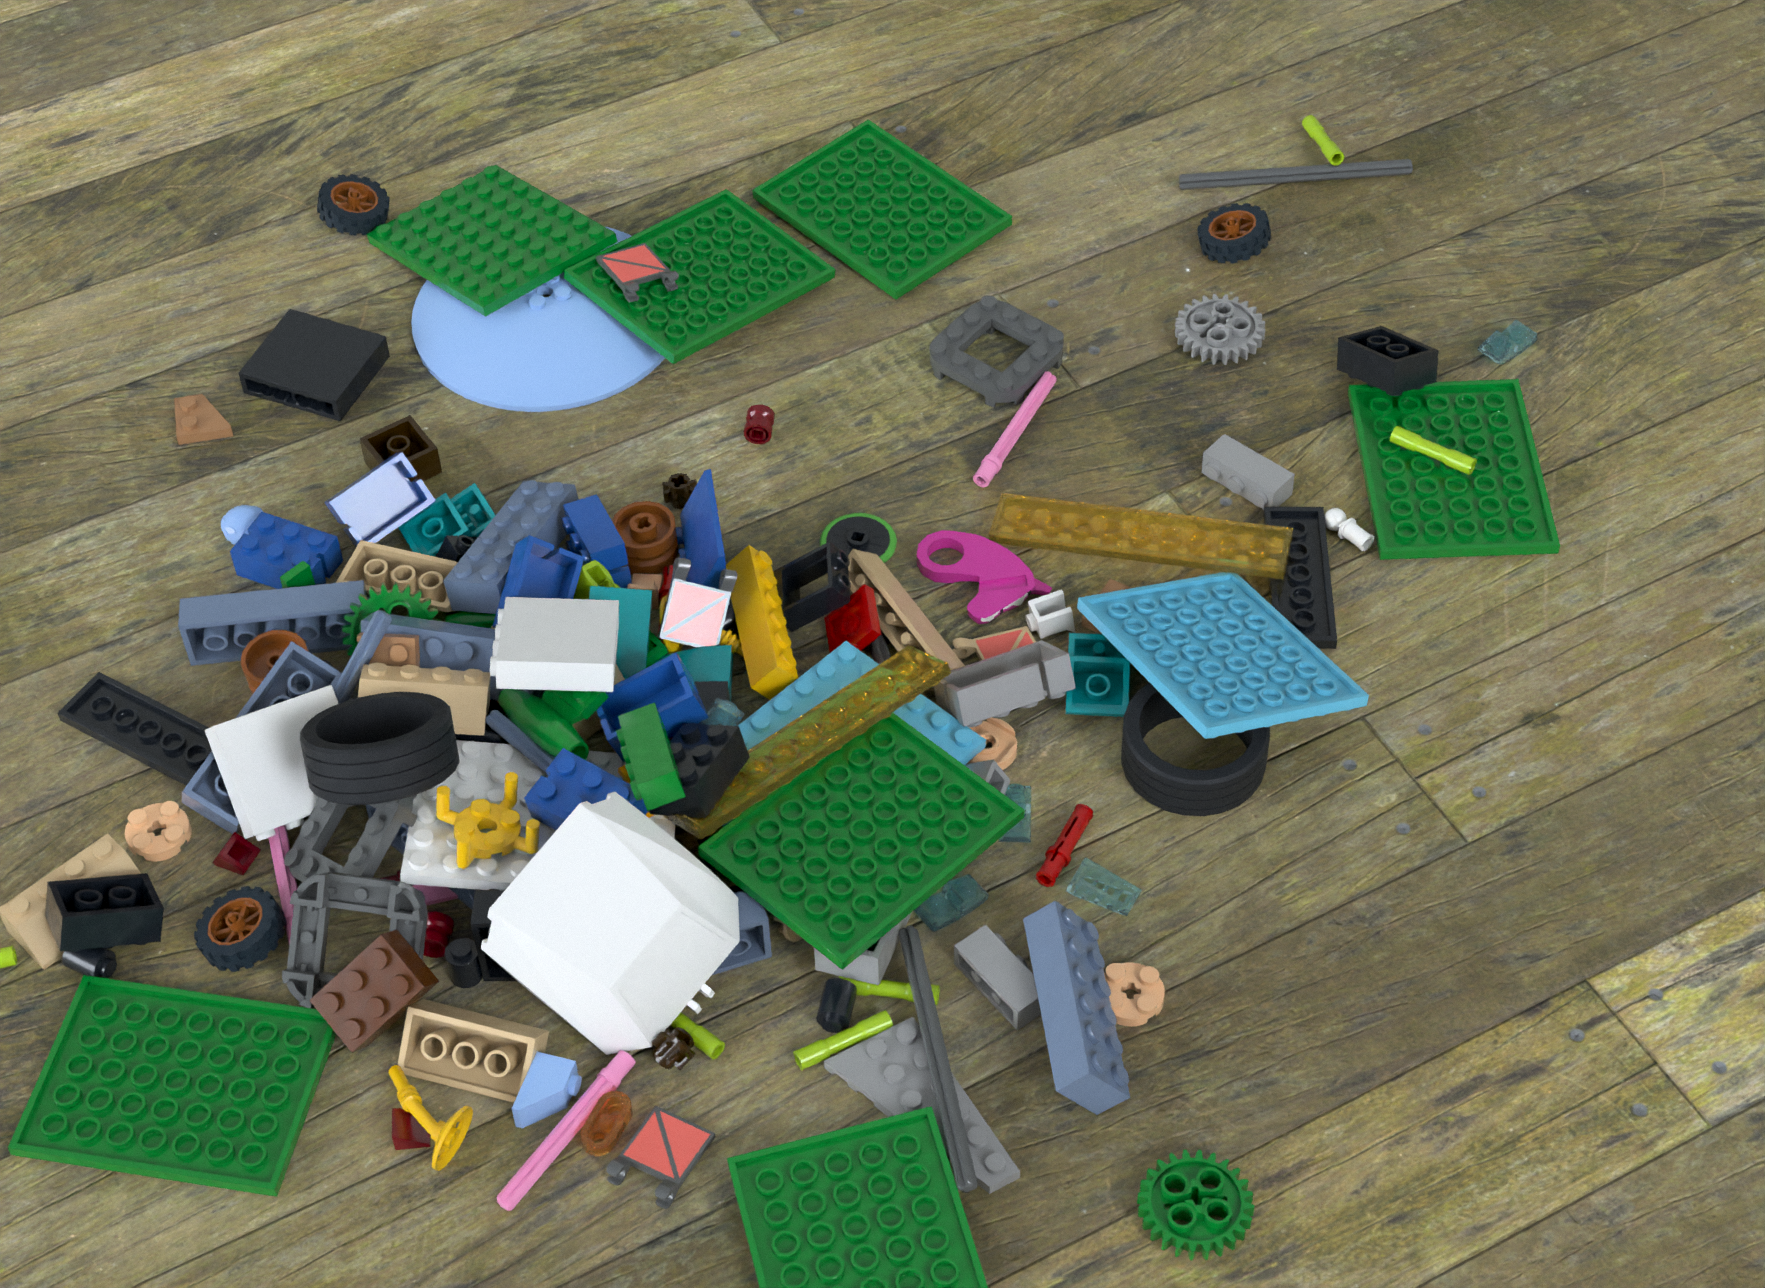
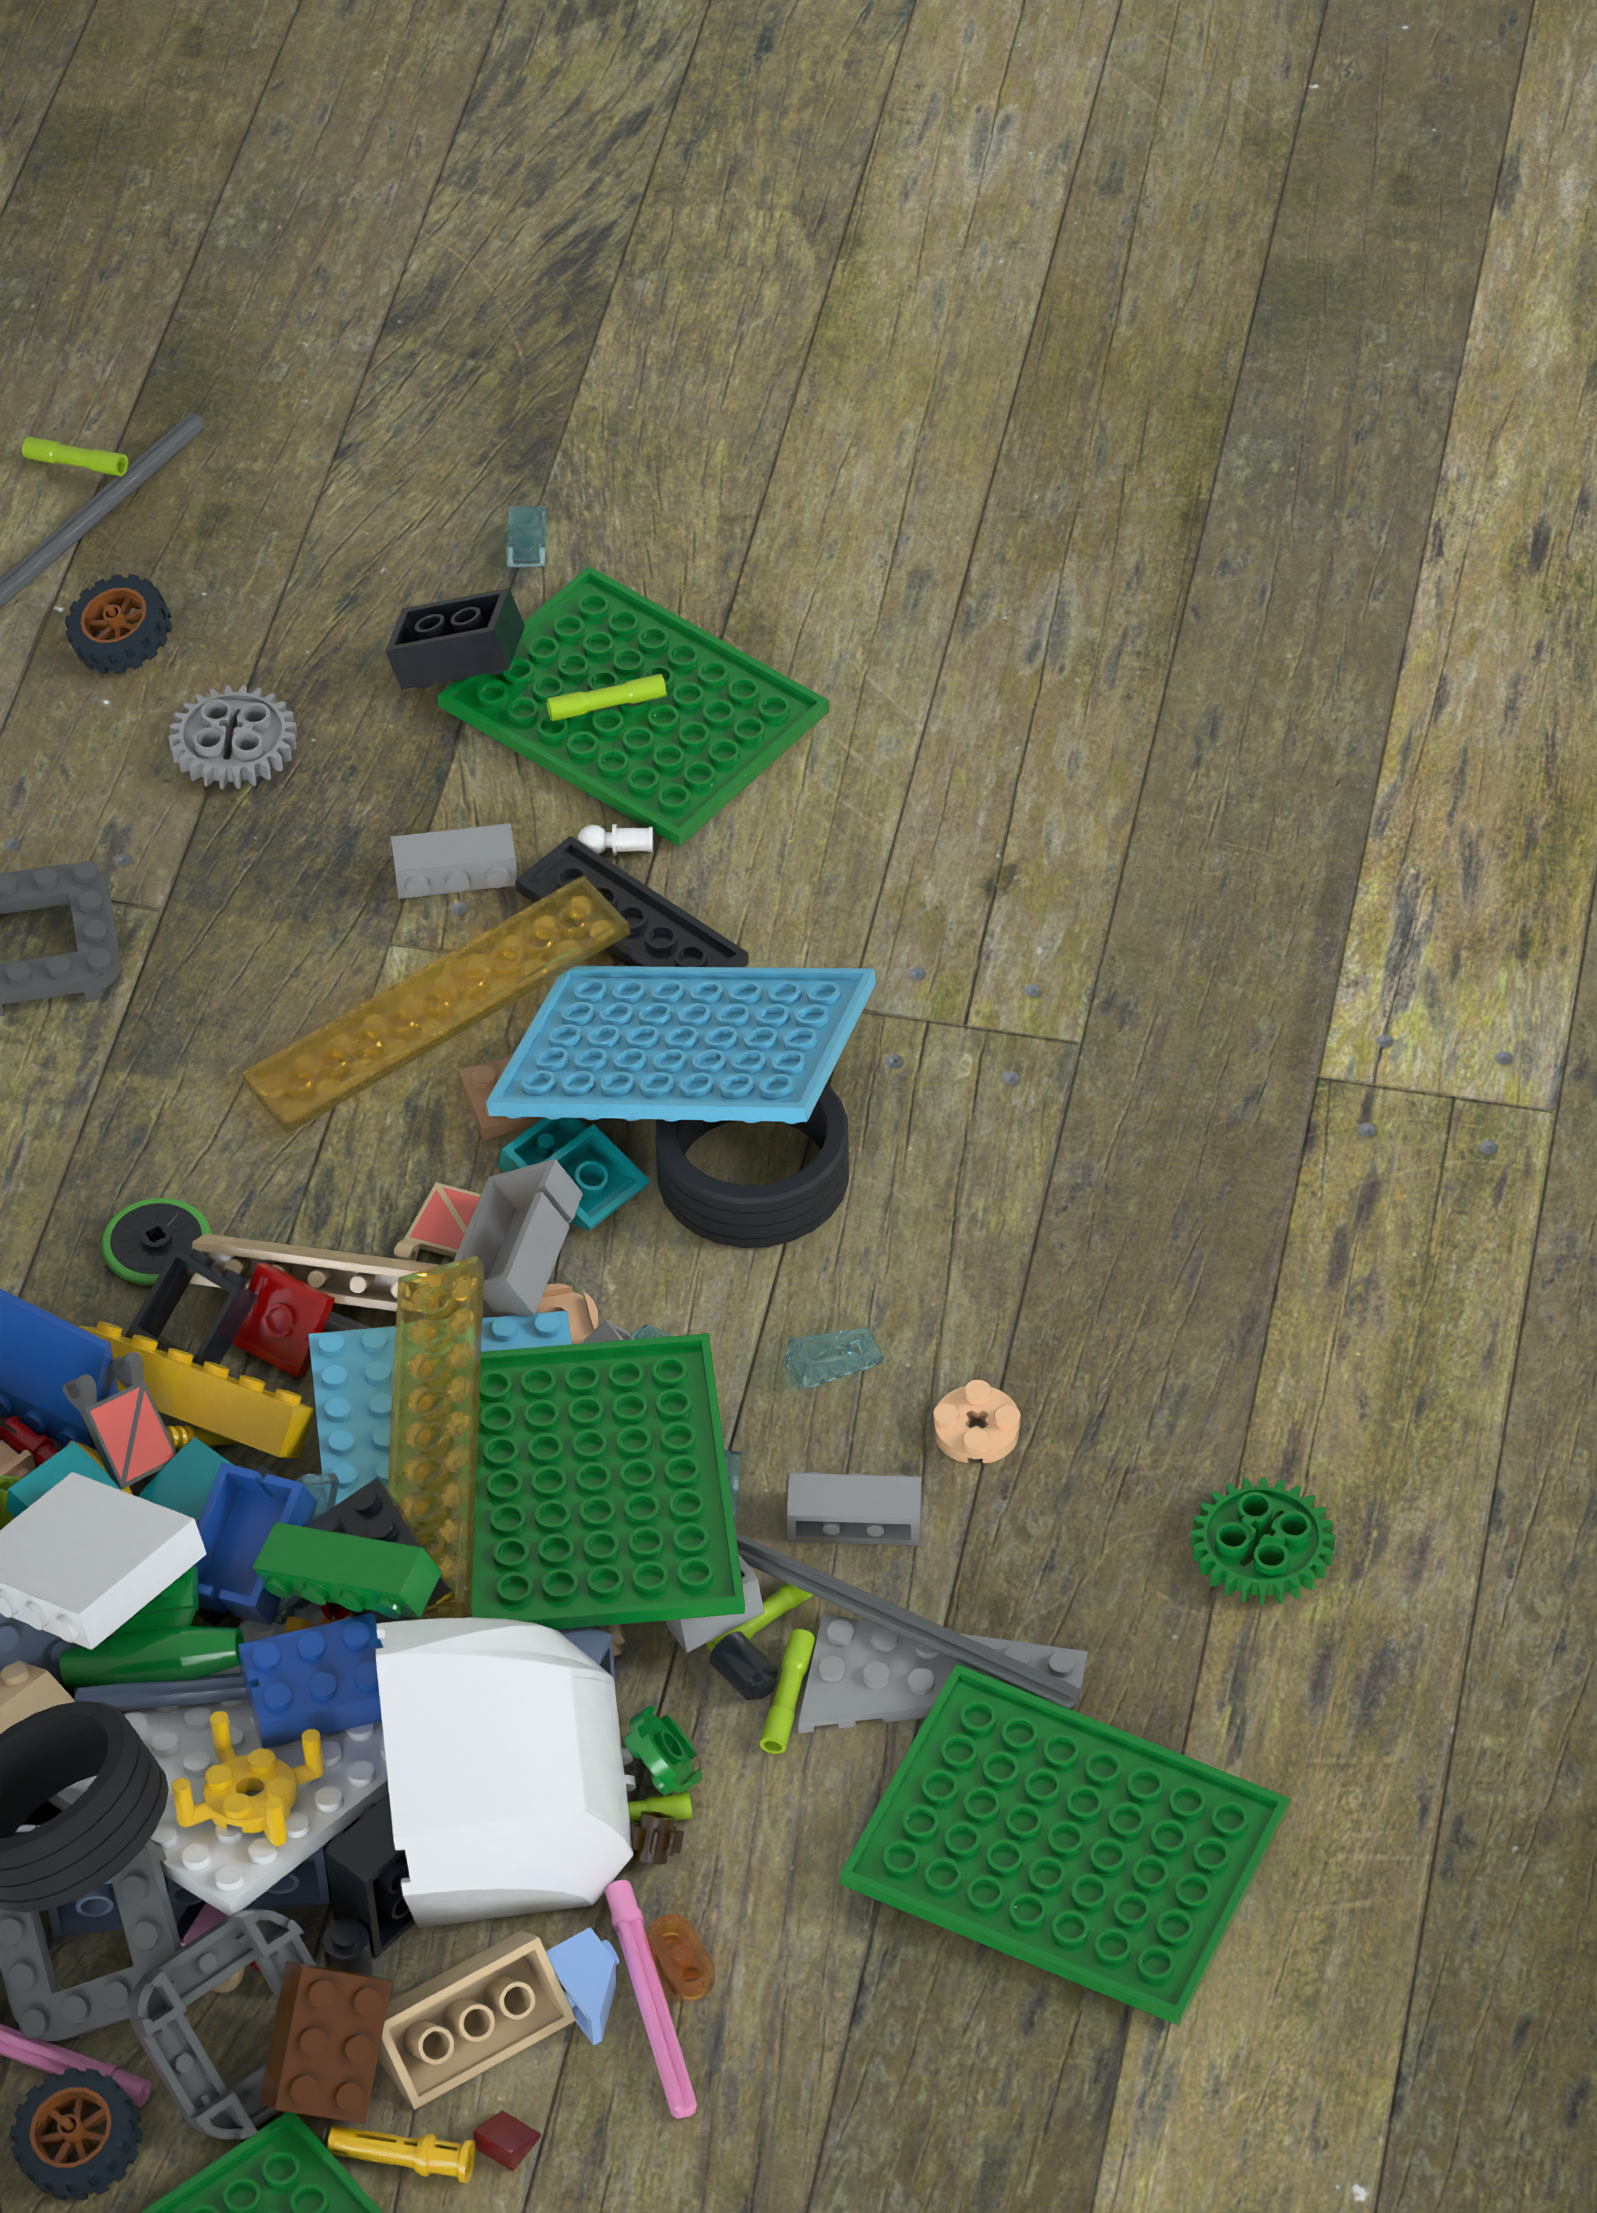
camera: 50 degrees left, 0 degrees up
(364, 1098) = (423, 2154): none -> yellow pin
(446, 1135) = (557, 2100): yellow dish -> none
(665, 1149) = (759, 1929): flag -> none
(714, 1007) = (663, 1750): none -> green plate
(993, 462) = (183, 1050): bright pink axle -> none
(1000, 573) = (356, 1155): dark pink animal -> none
(1049, 615) = (443, 1142): white window -> none
(1059, 855) = (765, 1377): red pin -> none
(1076, 1008) = (965, 1467): sand blue brick -> none

